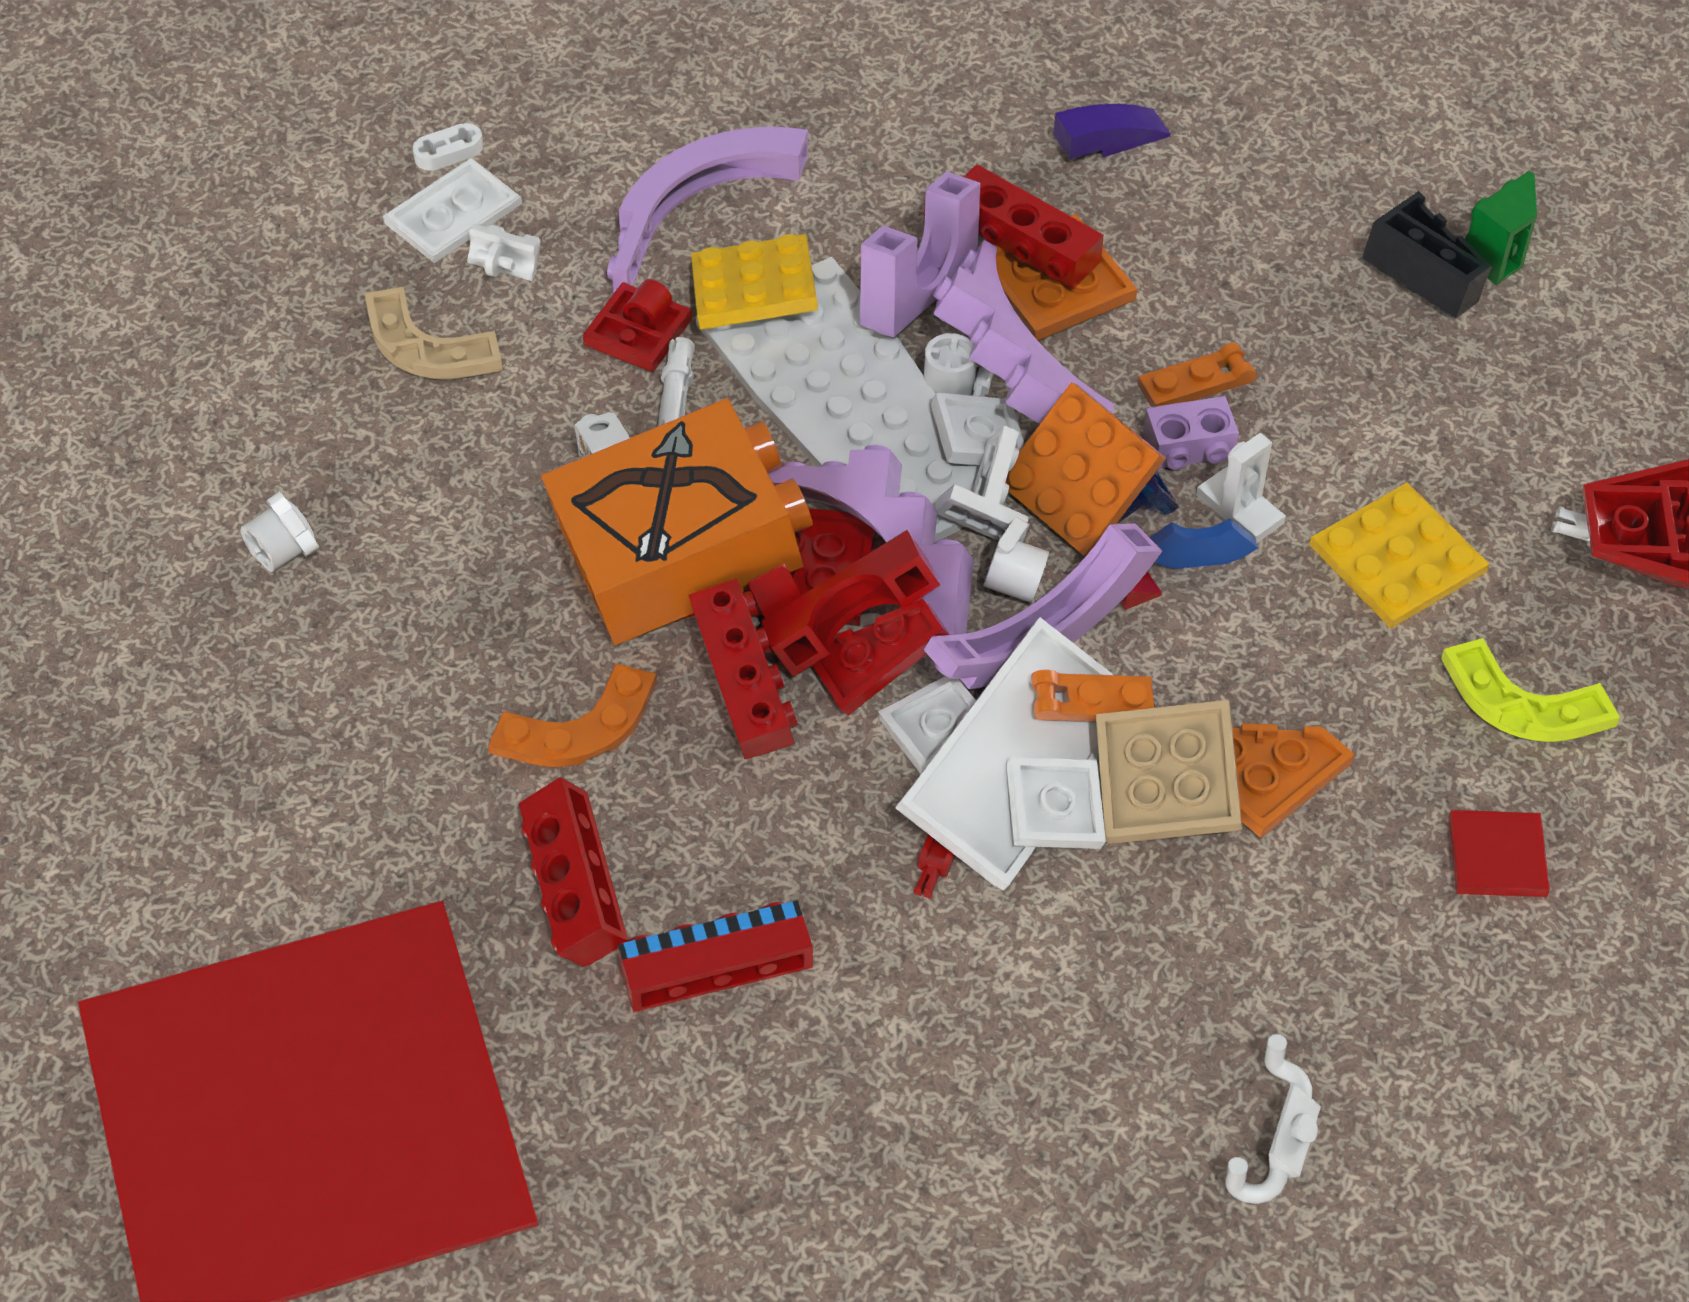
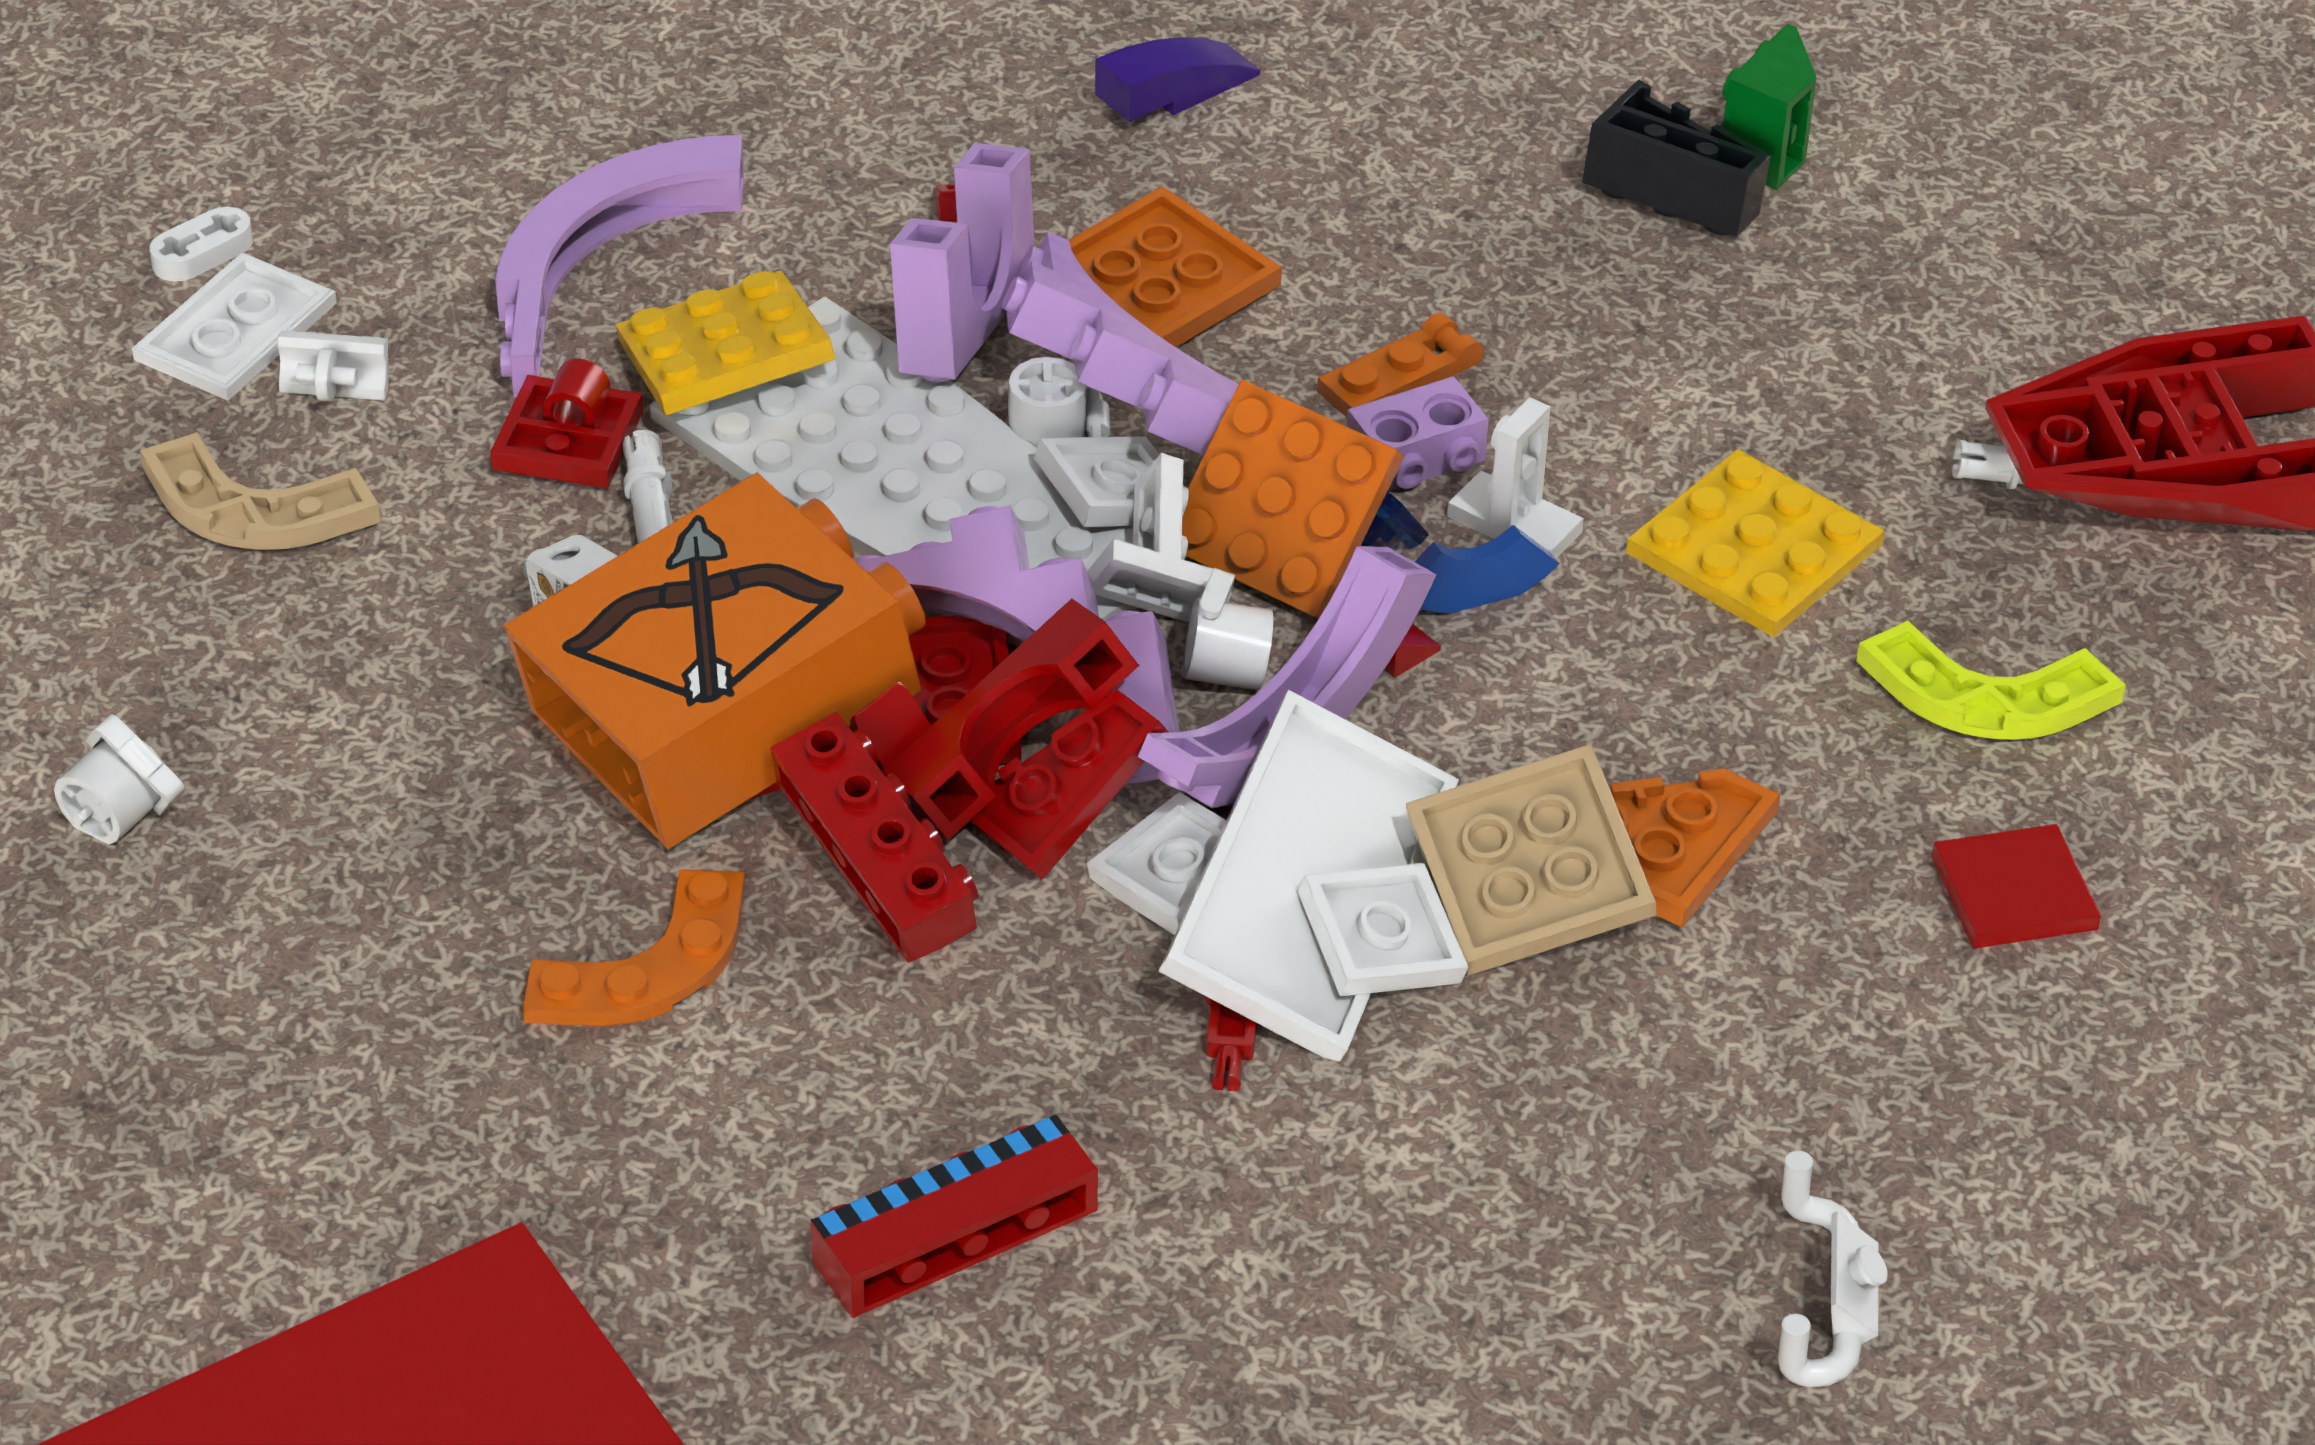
camera: 15 degrees left, 10 degrees down
(572, 873) = (708, 1146): red brick -> none
(1035, 230) = (1121, 211): red brick -> none
(1088, 695) = (1382, 782): orange plate -> none

